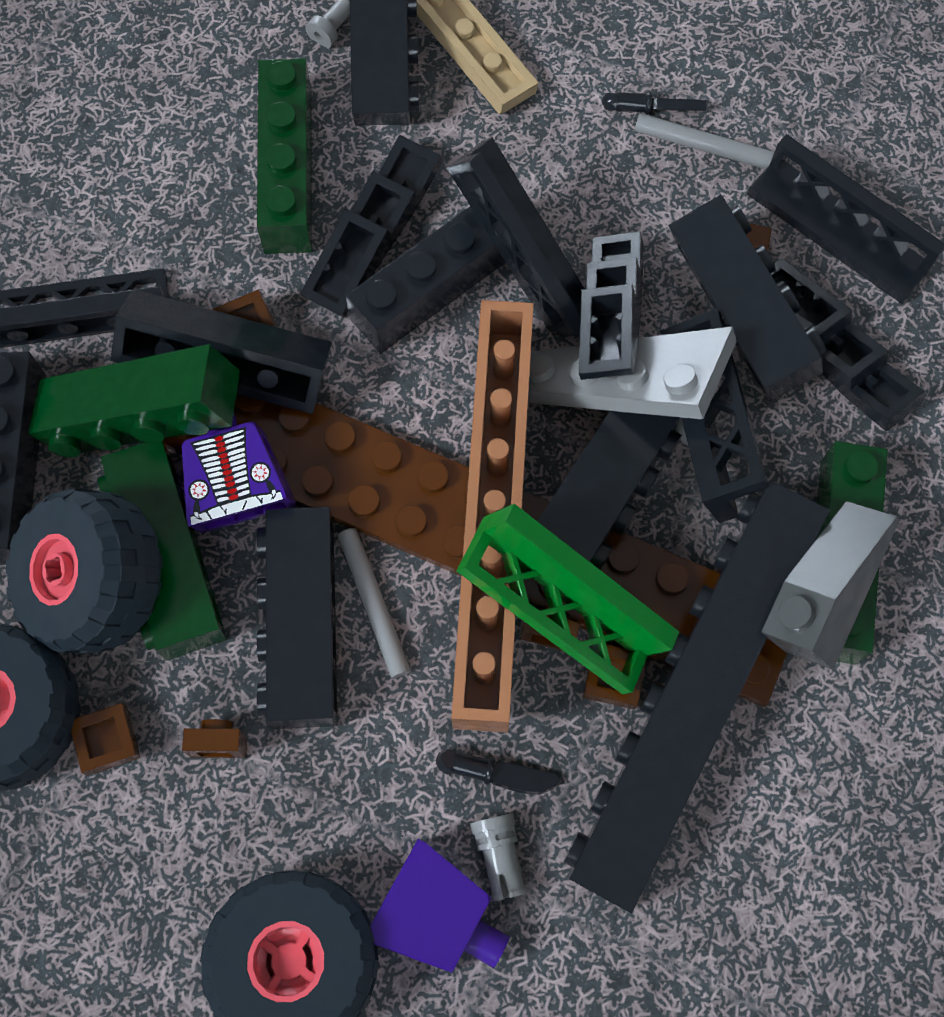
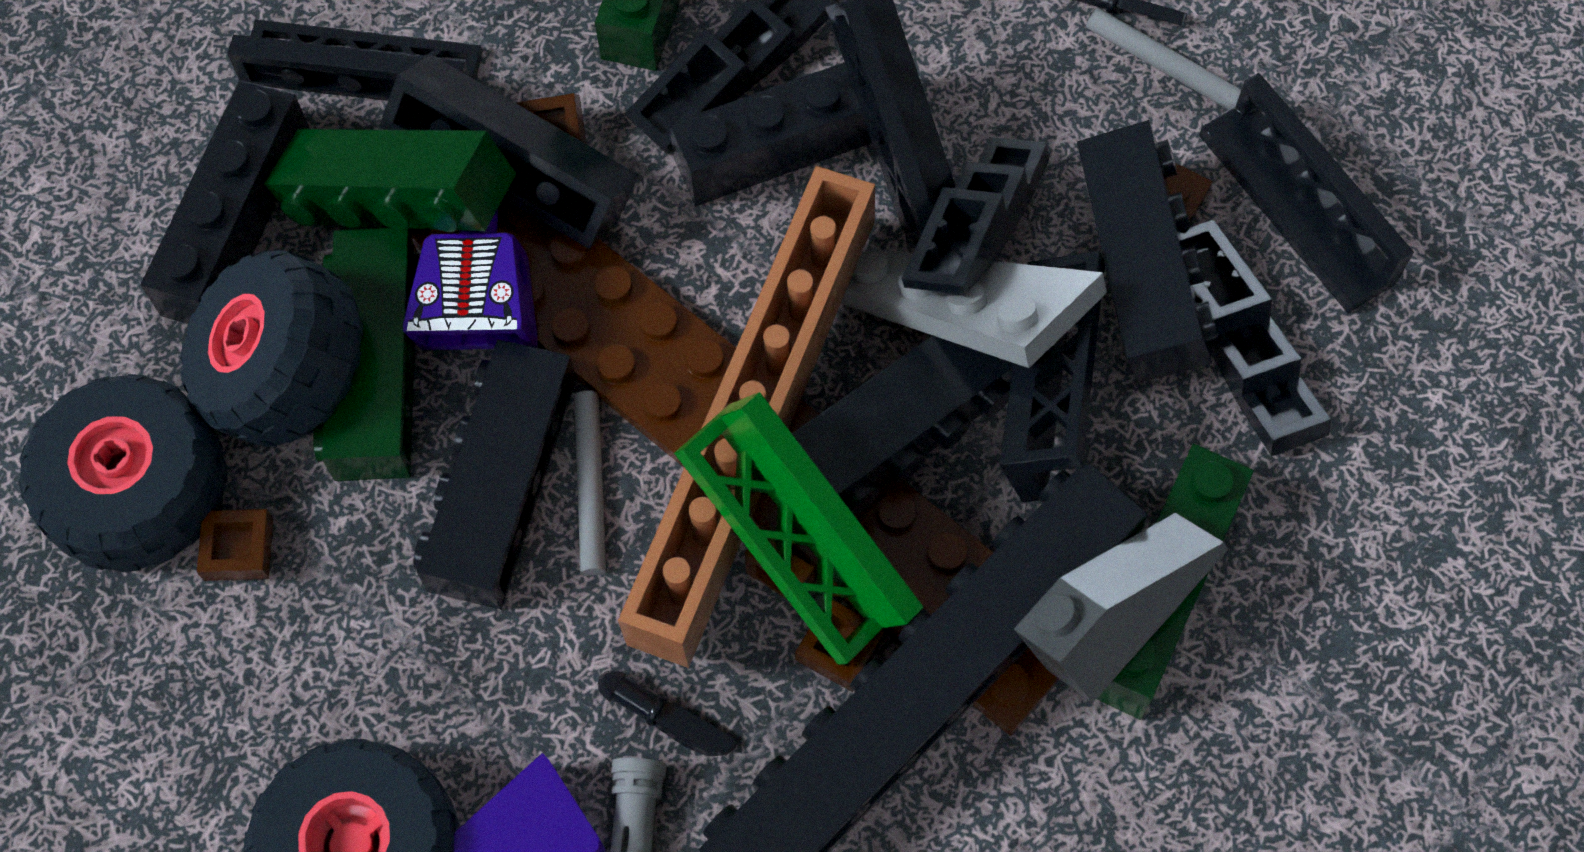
camera: 20 degrees right, 5 degrees down
(214, 740) = (355, 581): reddish brown plate -> none

